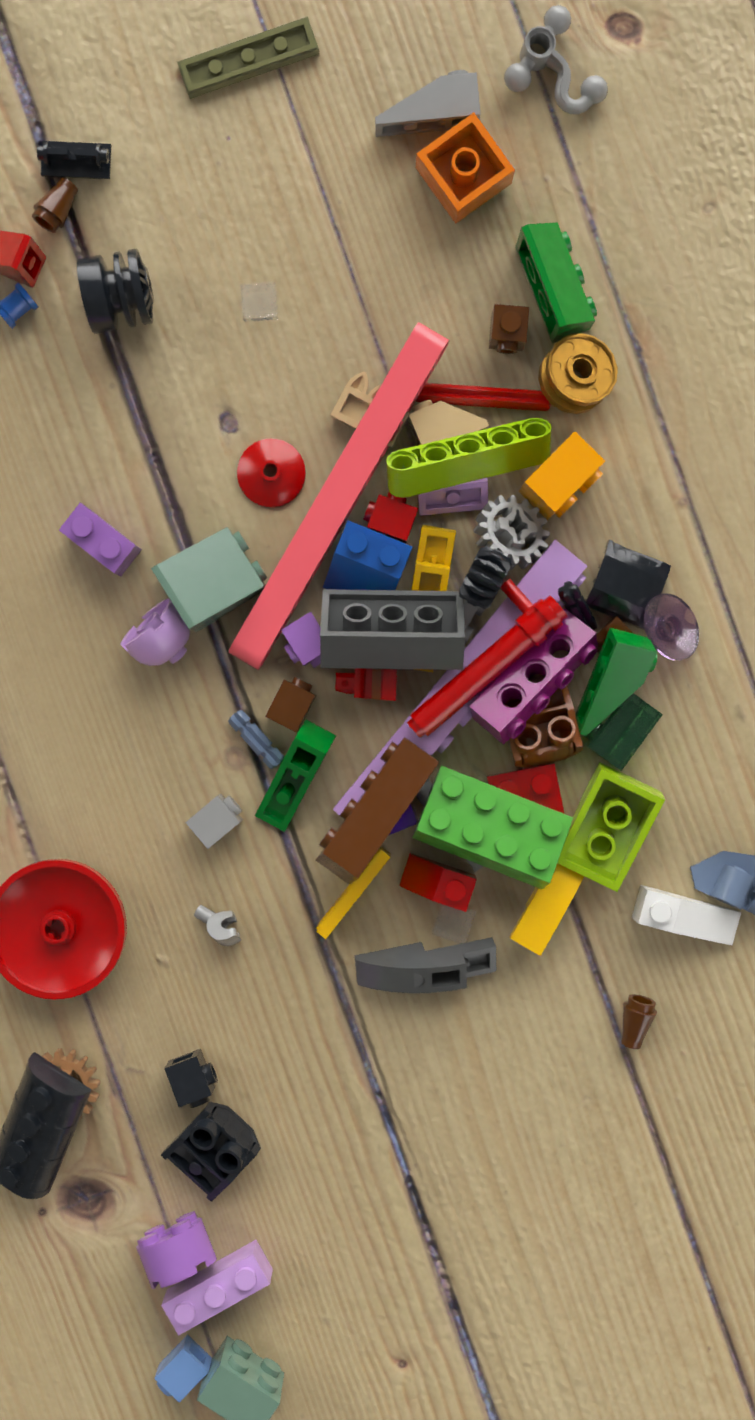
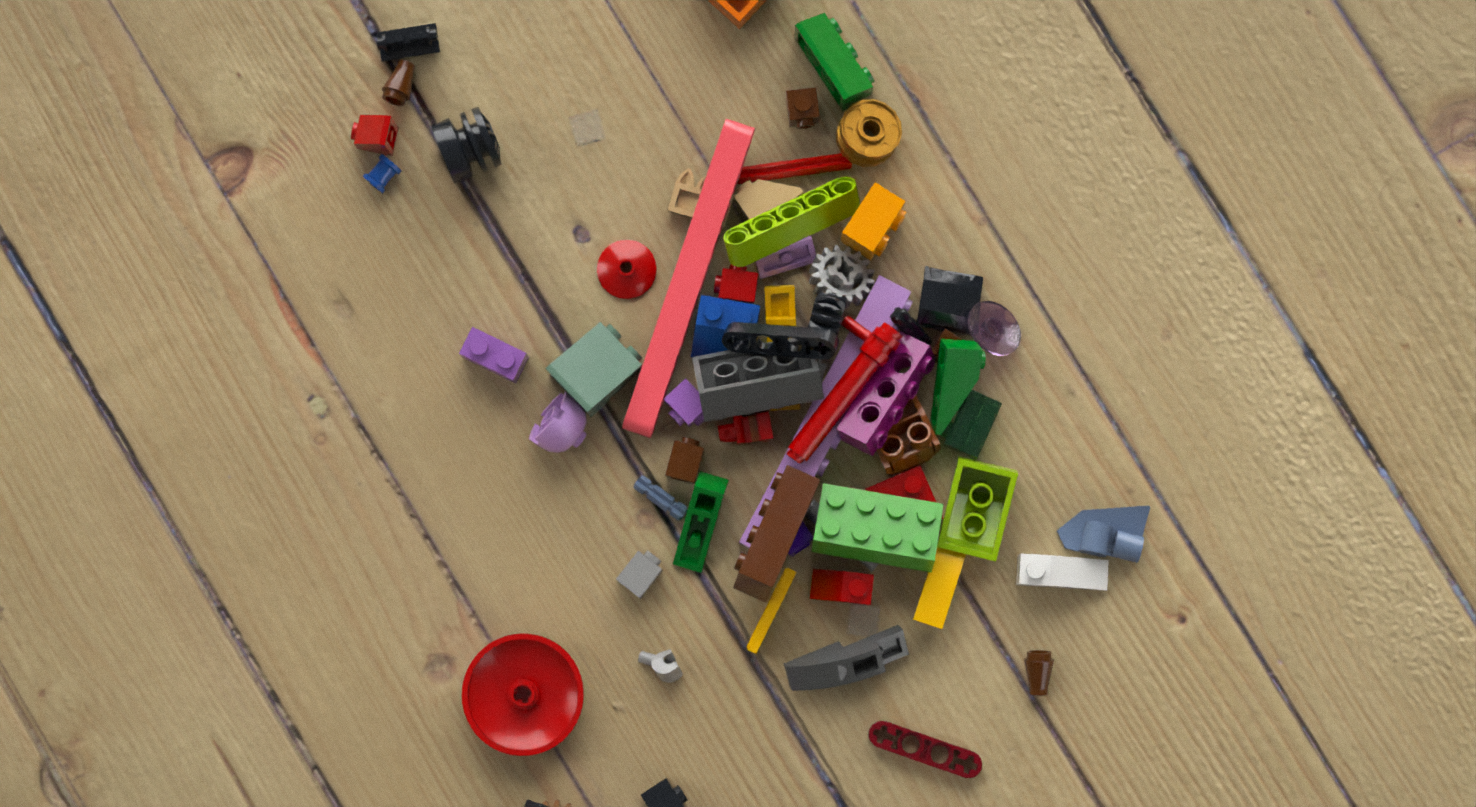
camera: 10 degrees left, 5 degrees down
(387, 582) = (744, 338): none -> black beam
(488, 1083) = (926, 745): none -> dark red beam

